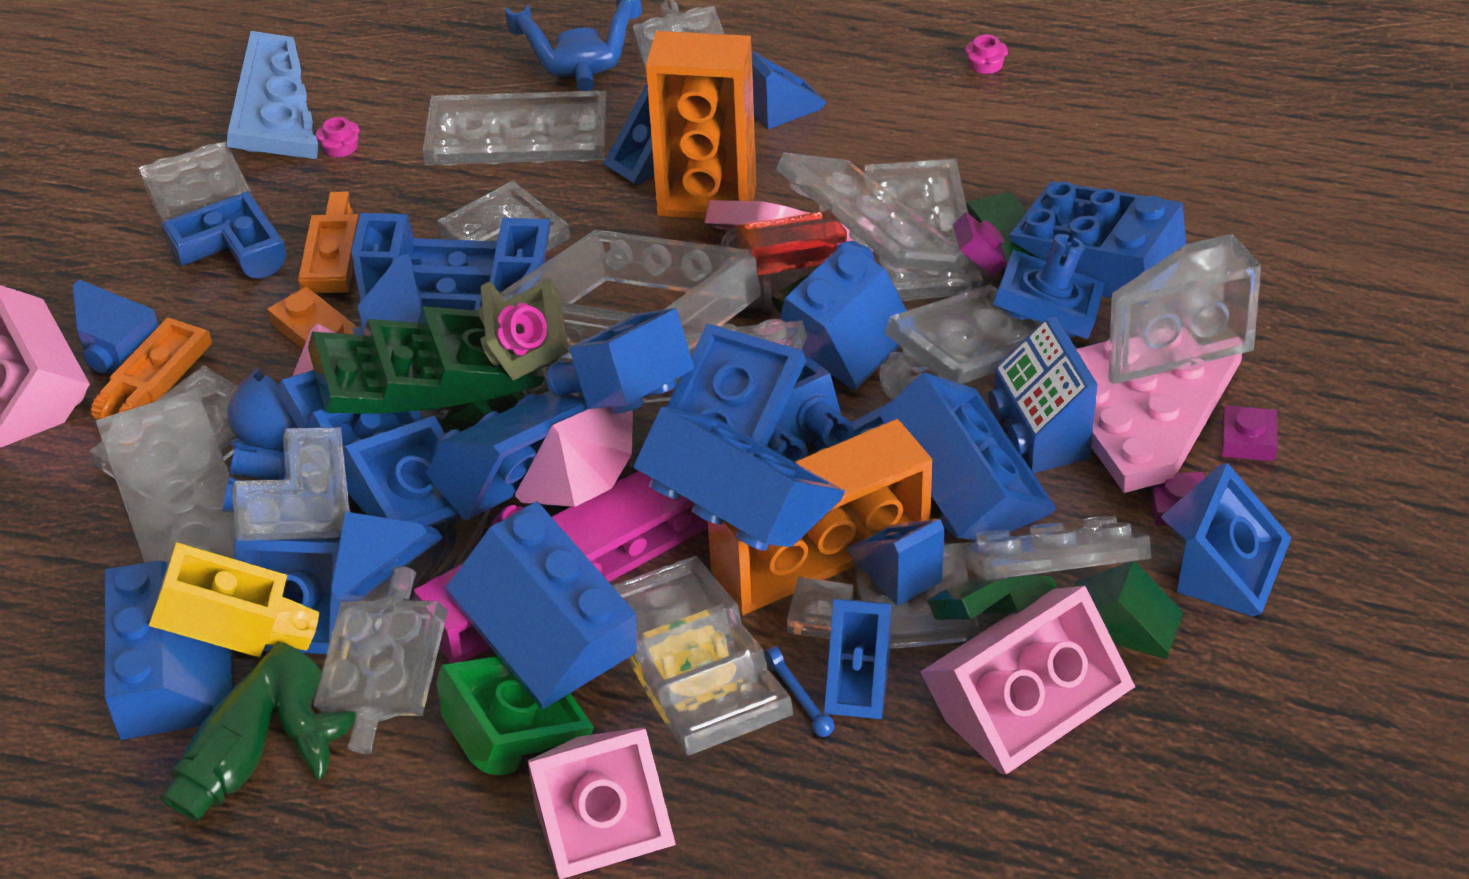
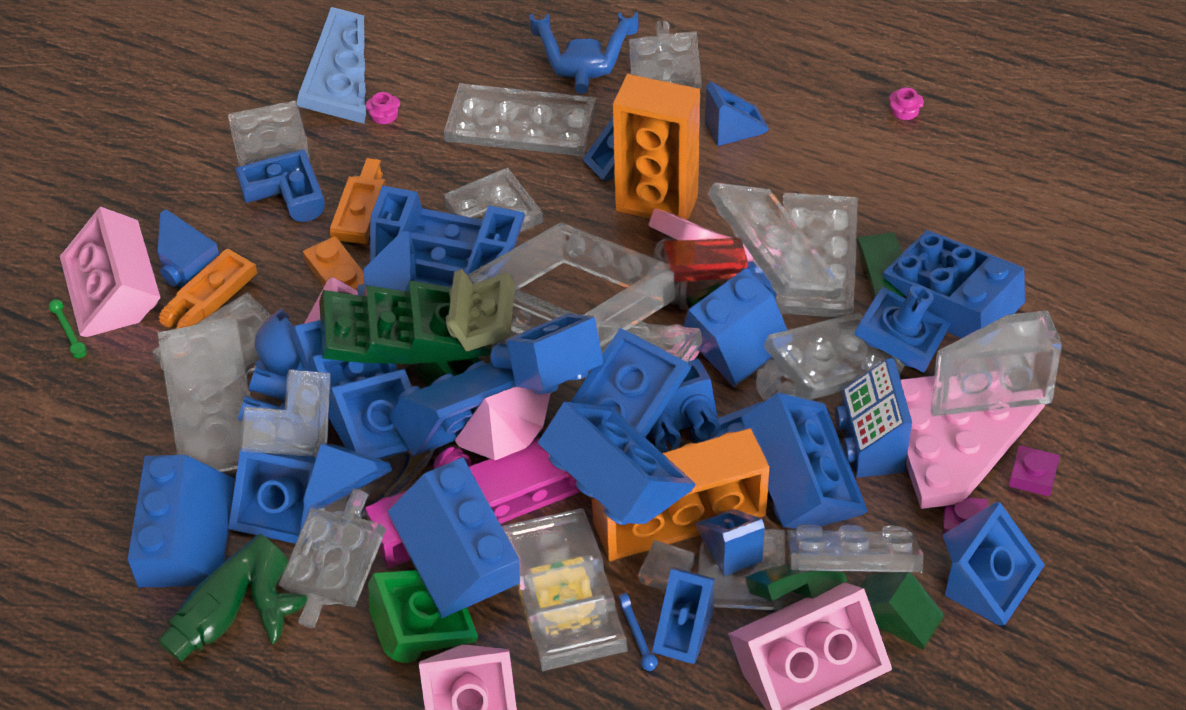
camera: 10 degrees right, 5 degrees up
(229, 604) = (228, 500): yellow hinge -> none
(532, 327) = (485, 314): dark pink plate -> none
(980, 243) = (856, 278): magenta plate -> none

